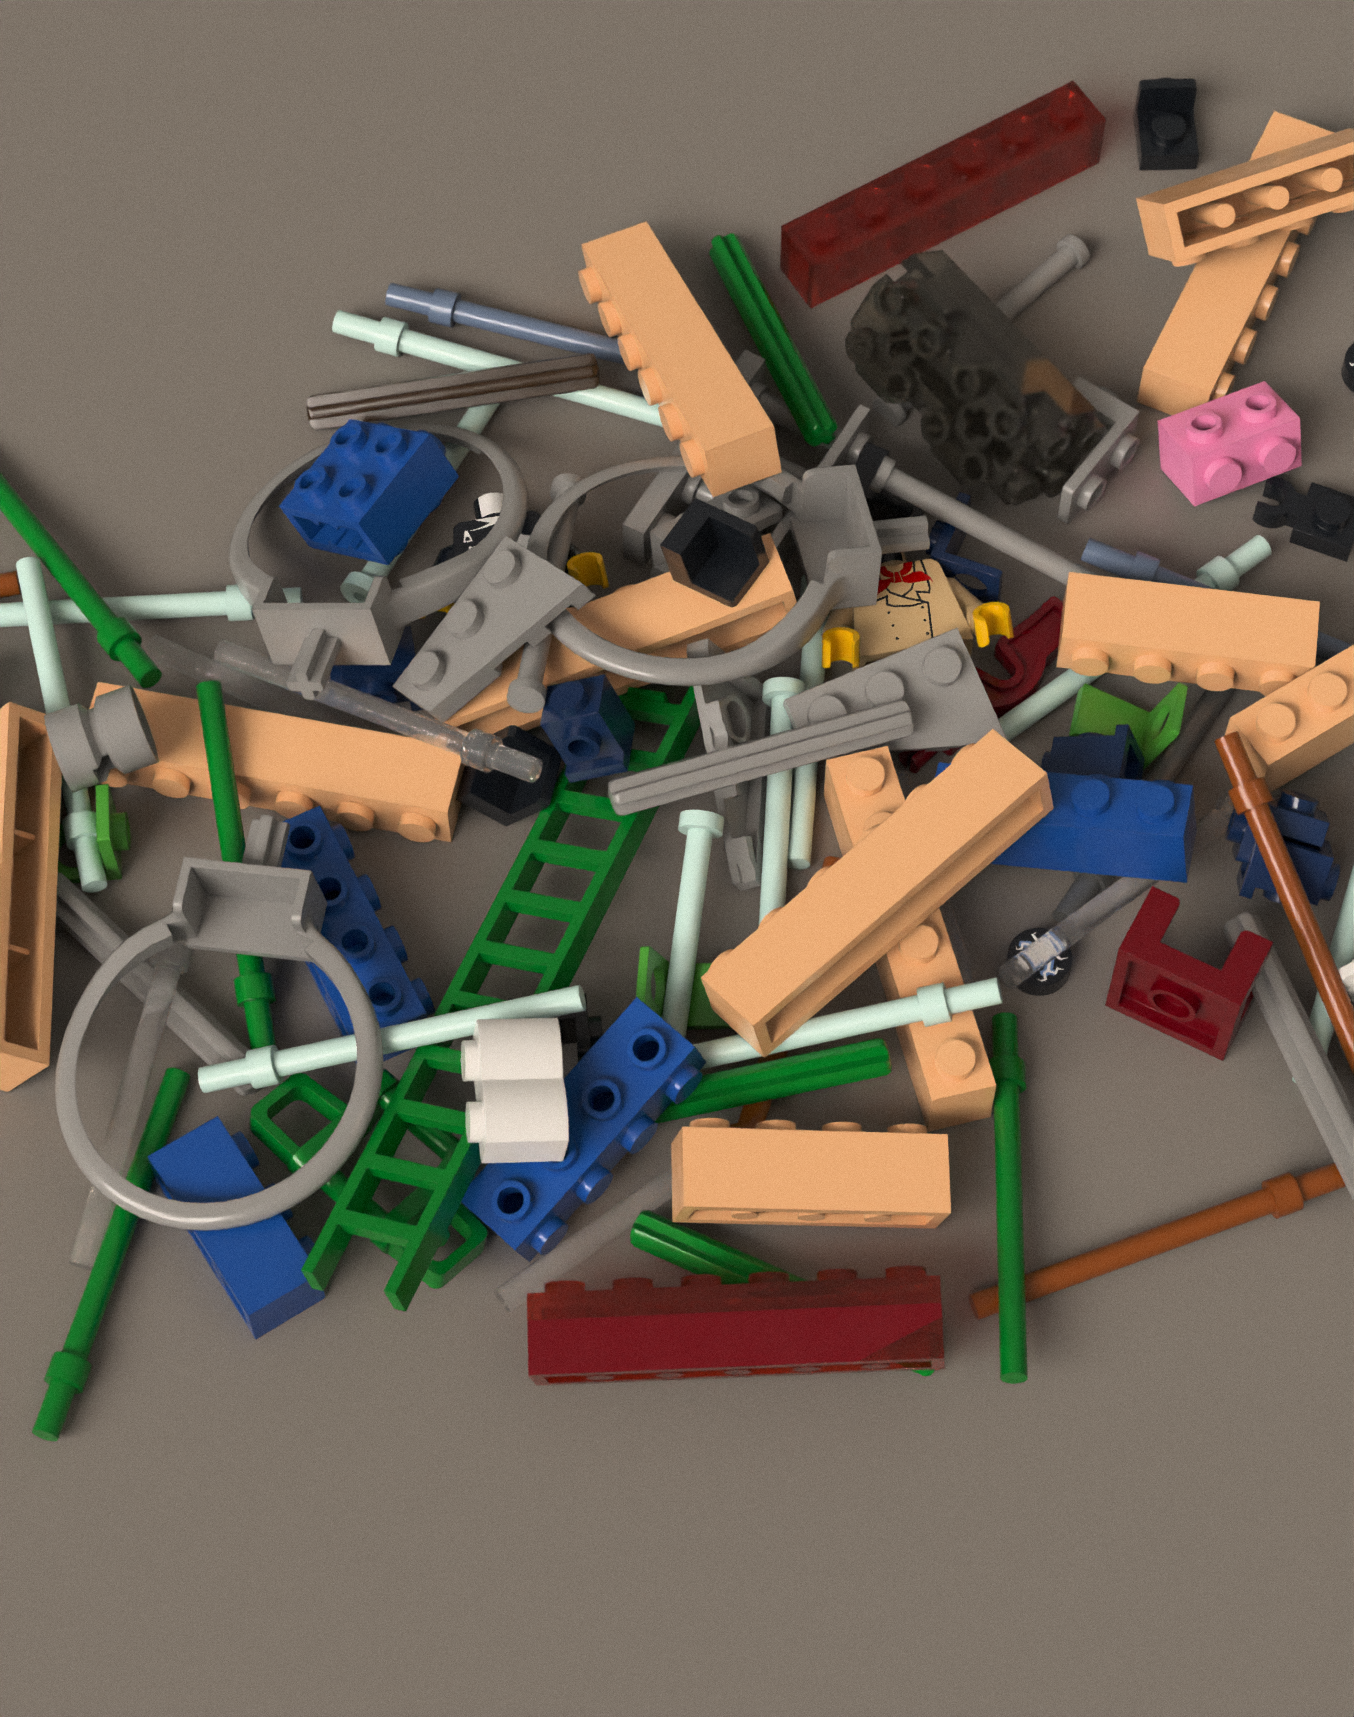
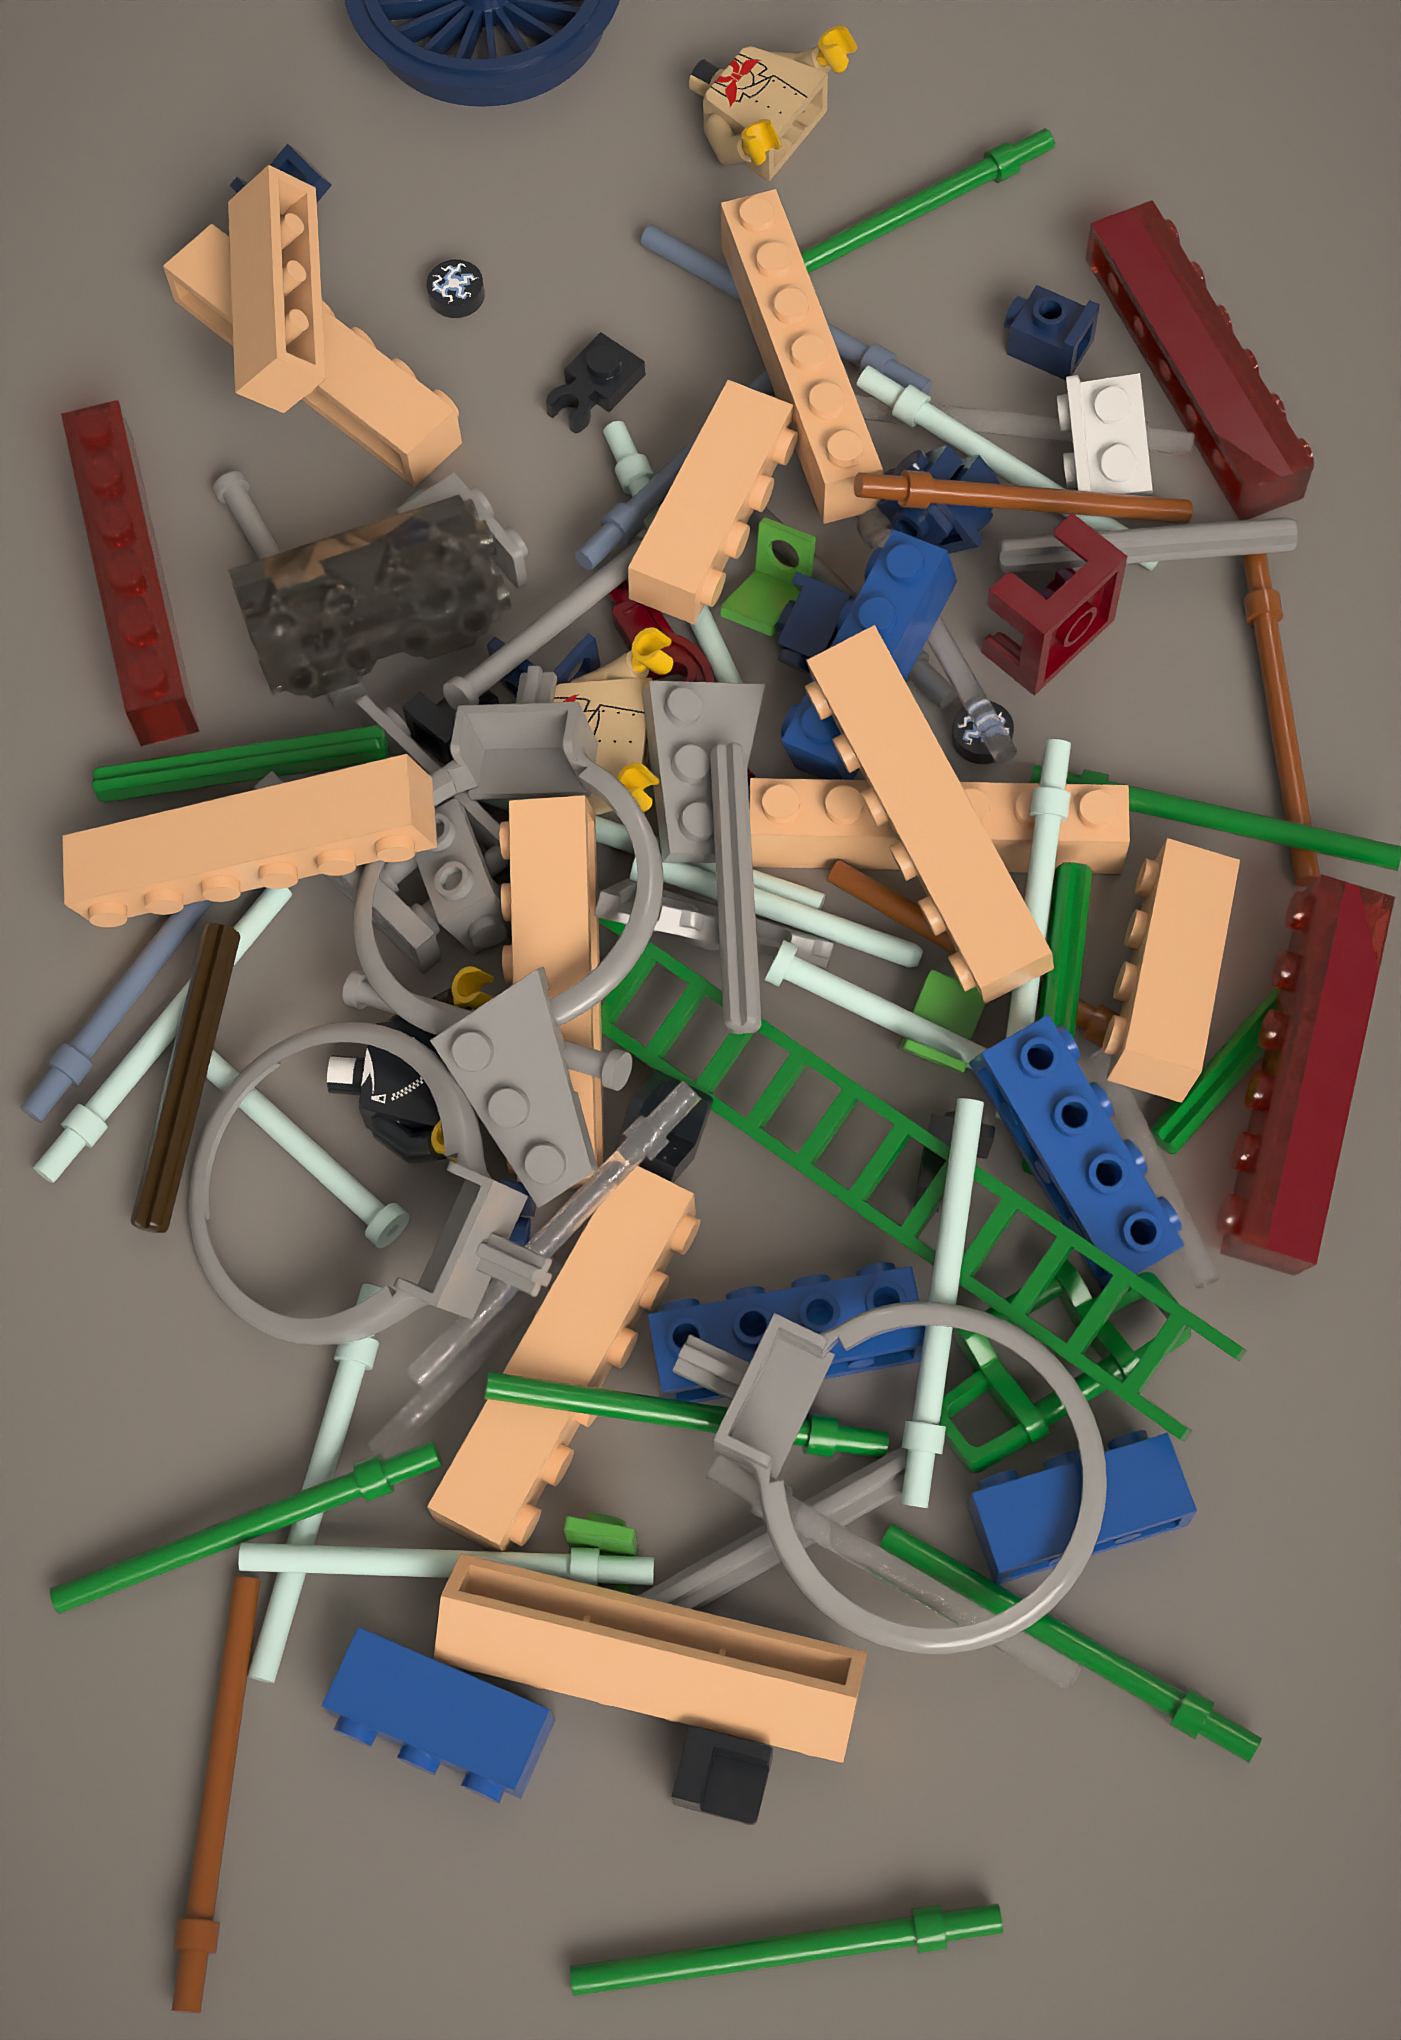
camera: 70 degrees left, 5 degrees up
(101, 738) = (520, 1507): light grey wheel -> none
(370, 490) = (287, 1179): blue brick -> none
(517, 1090) = (1060, 1180): white brick -> none
(588, 727) = (657, 1030): dark blue brick -> none
(714, 553) = (526, 848): black panel -> none
(1166, 124) = (123, 369): black bracket -> none
(1229, 443) = (508, 415): bright pink brick -> none

